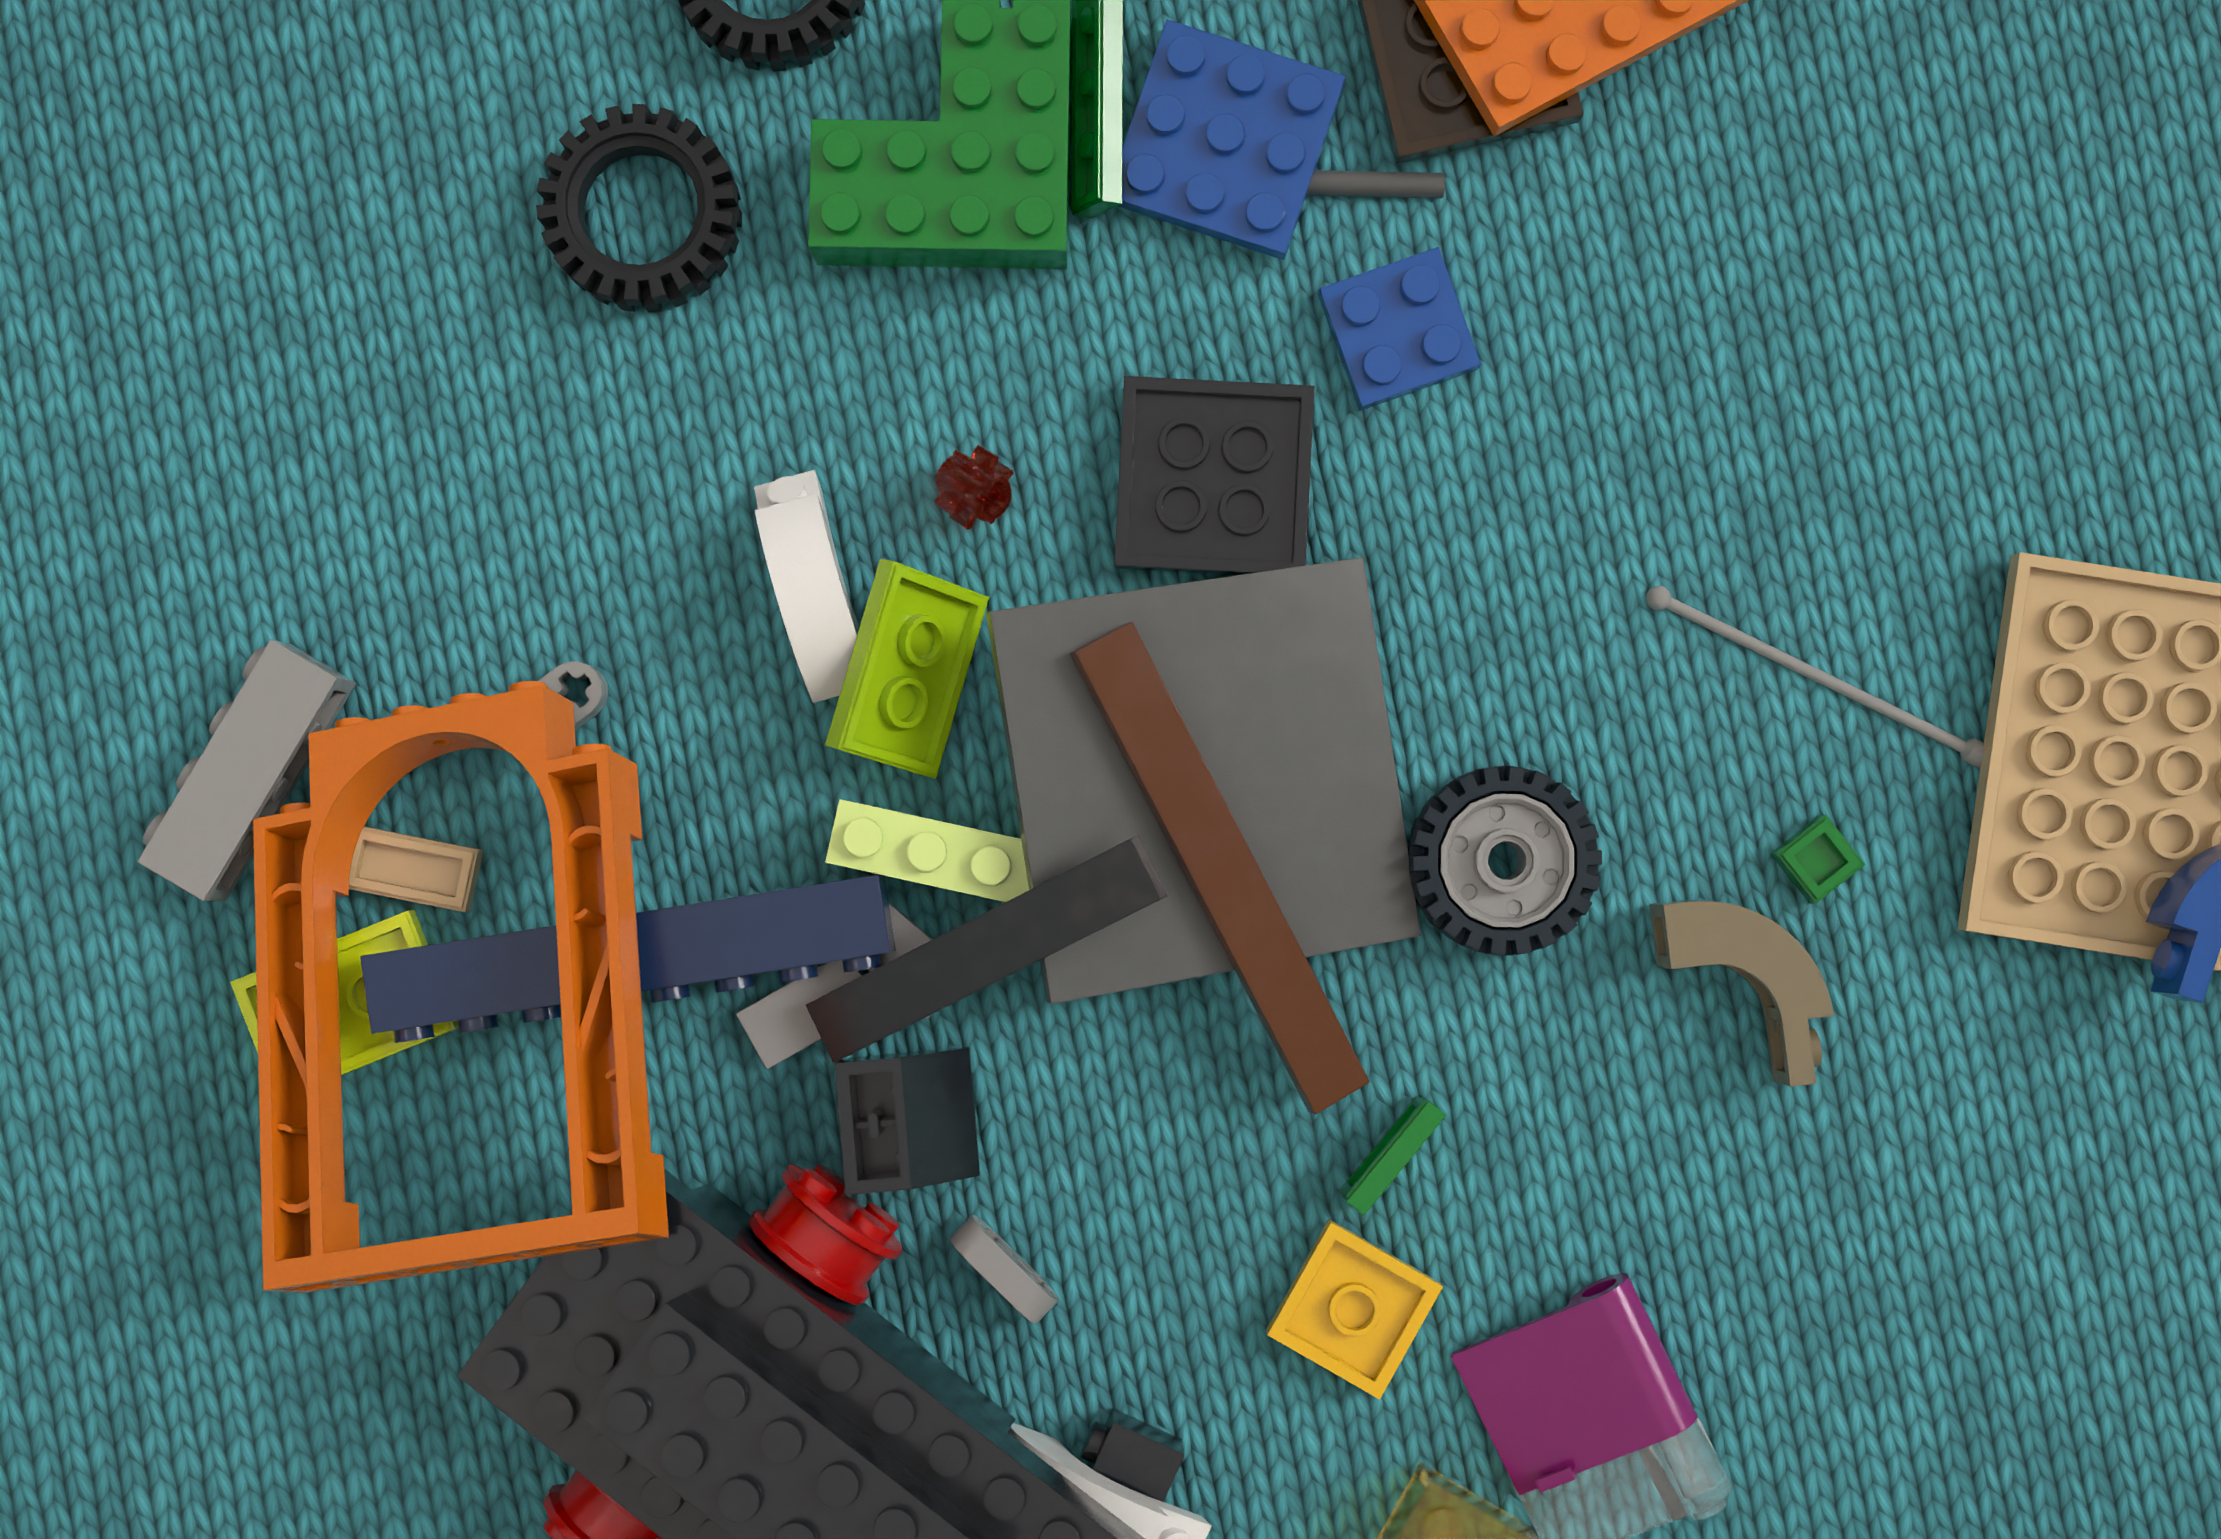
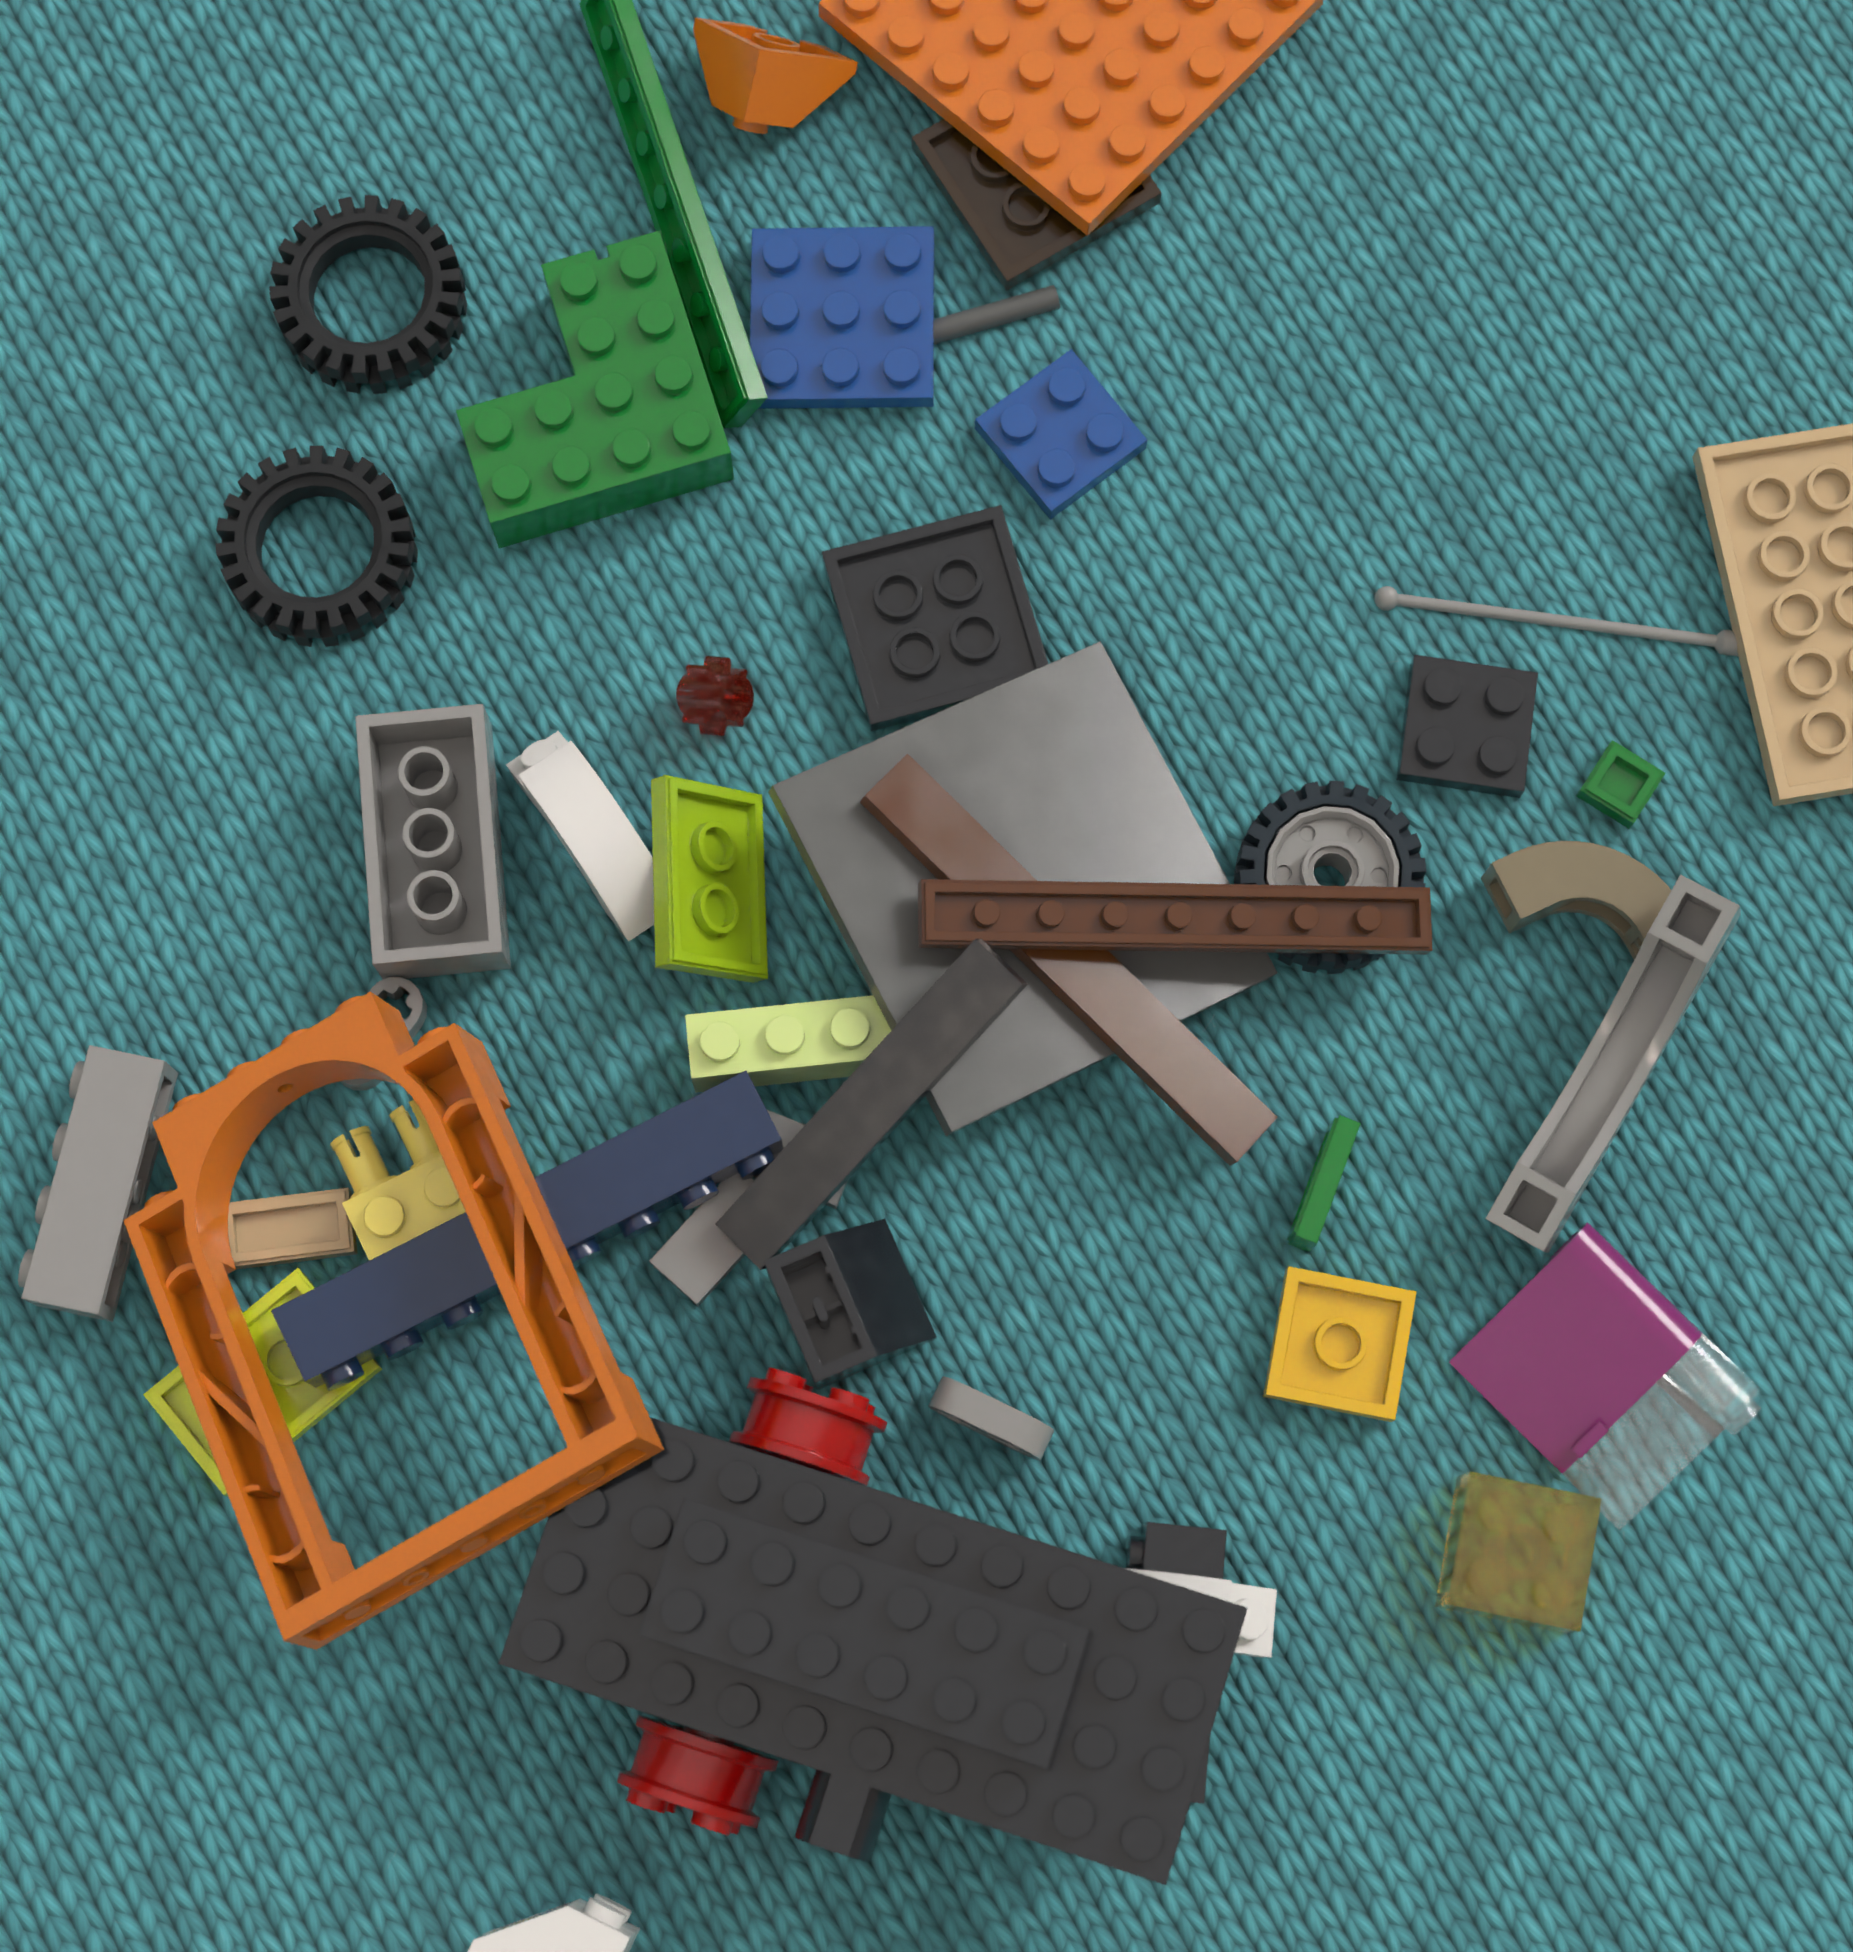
camera: 20 degrees left, 10 degrees down
(503, 890) = (394, 1207): none -> light yellow brick
(656, 544) = (432, 842): none -> light grey brick
(1335, 864) = (1174, 917): none -> reddish brown tile
(1690, 752) = (1467, 726): none -> black plate
(1707, 1145) = (1615, 1064): none -> light grey arch

